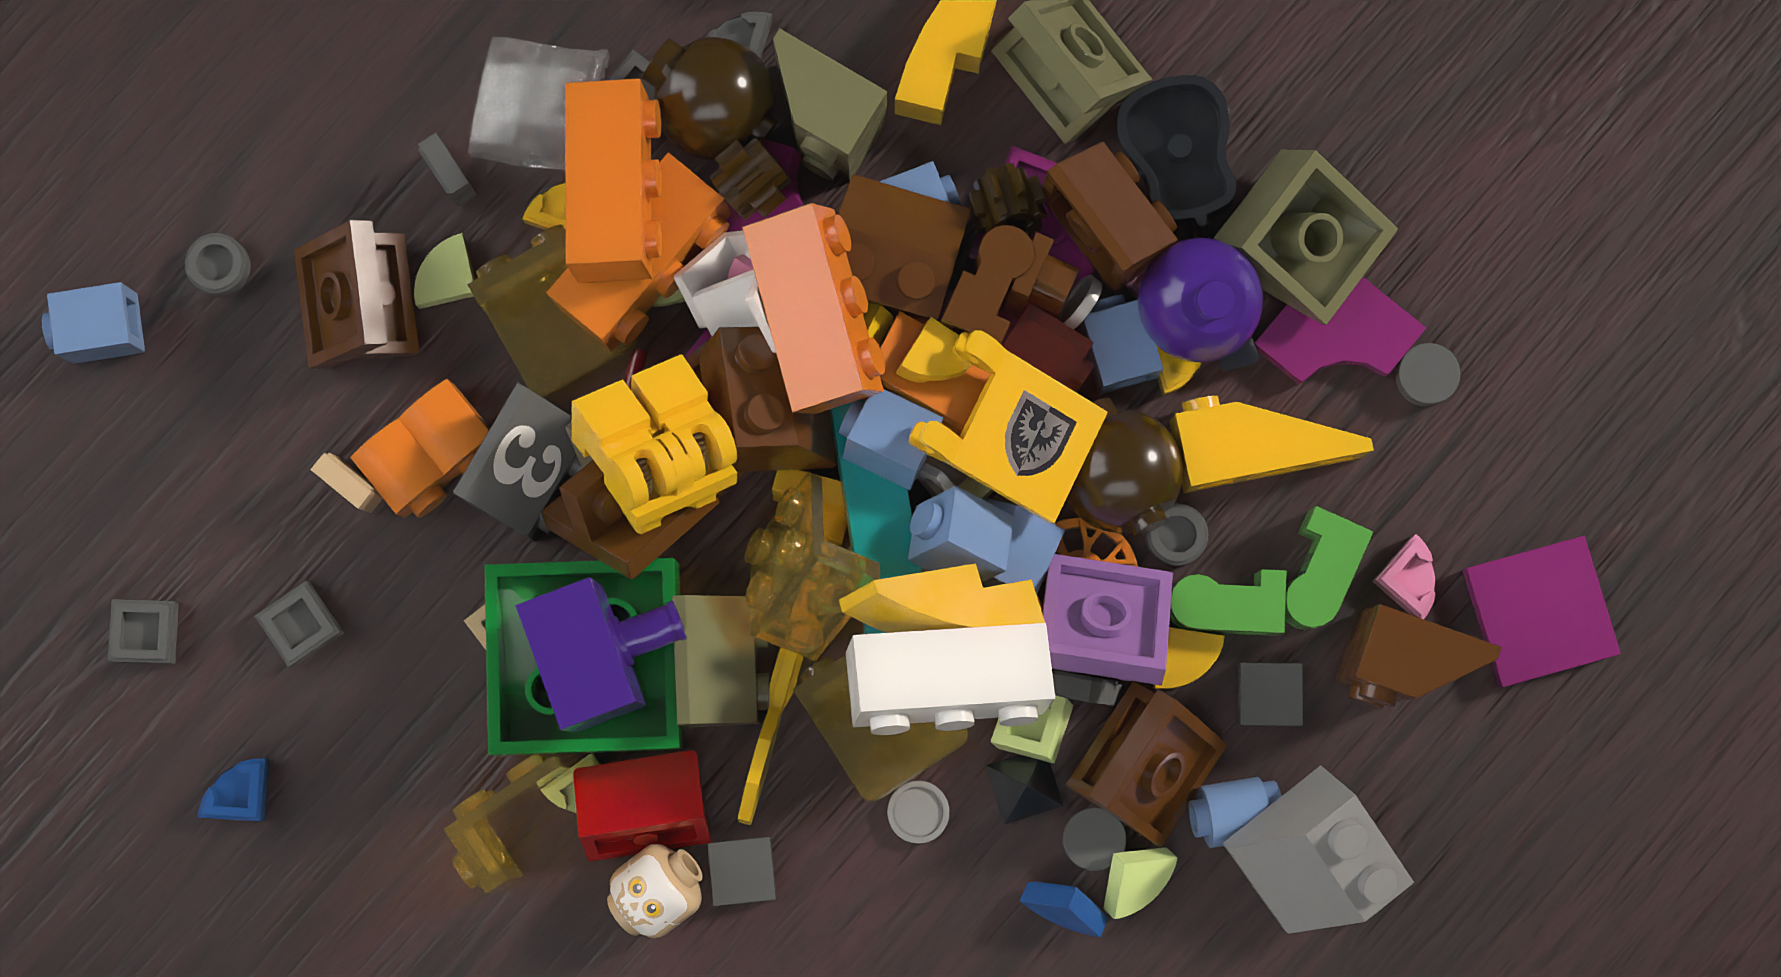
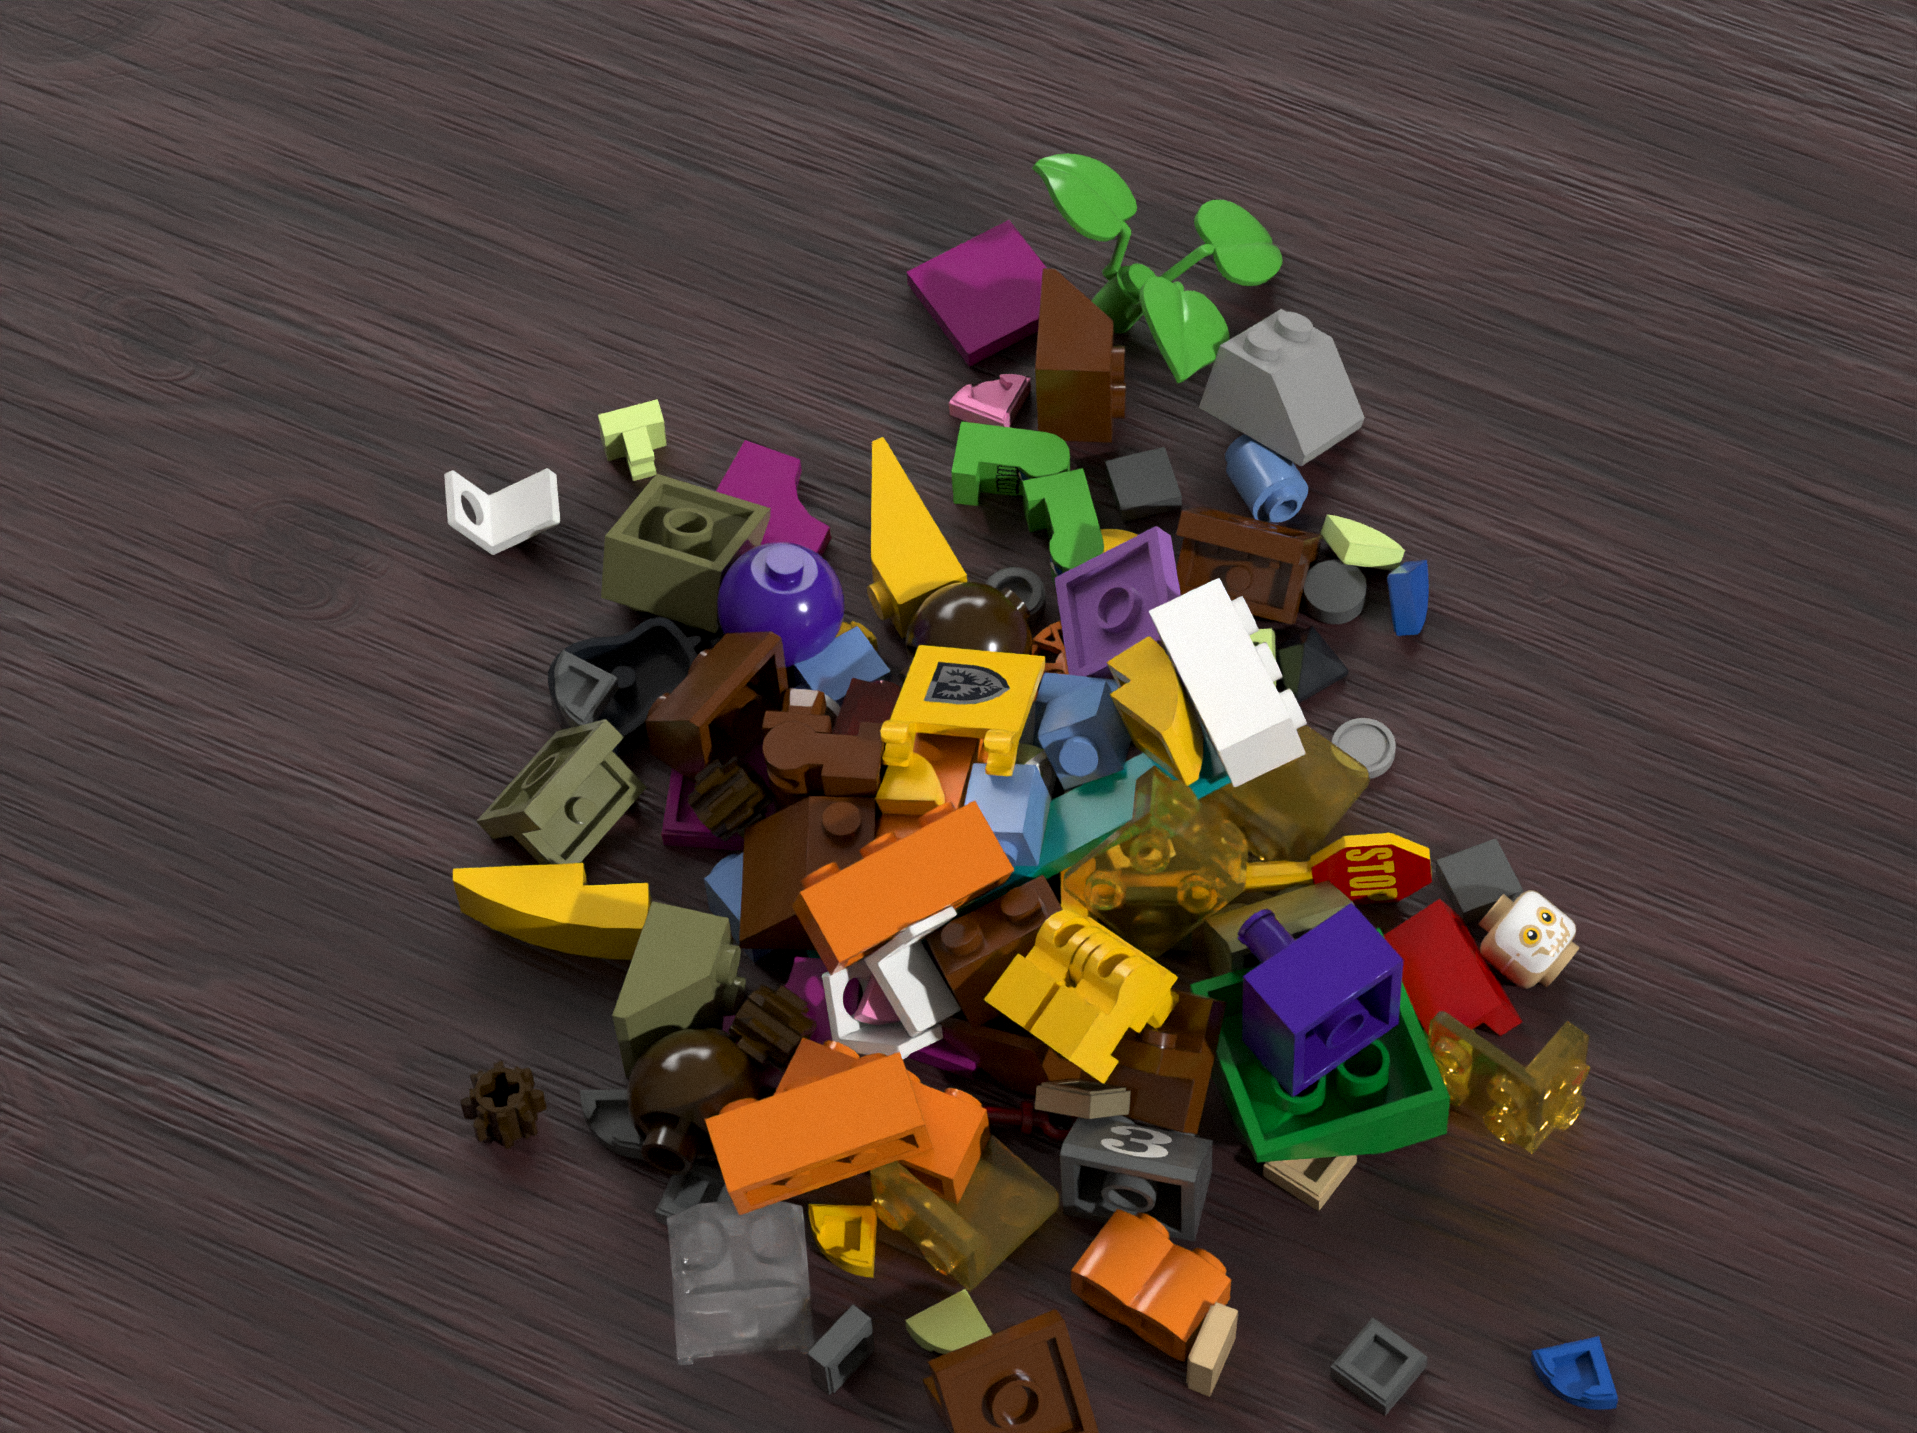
camera: 100 degrees left, 25 degrees down
(1169, 100) = (582, 689): none -> dark grey tile
(1406, 86) = (506, 515): none -> white bracket
(1427, 374) = (790, 430): dark grey tile -> none
(1454, 223) = (634, 435): none -> yellowish green tile
(1569, 715) = (1181, 321): none -> bright green plant

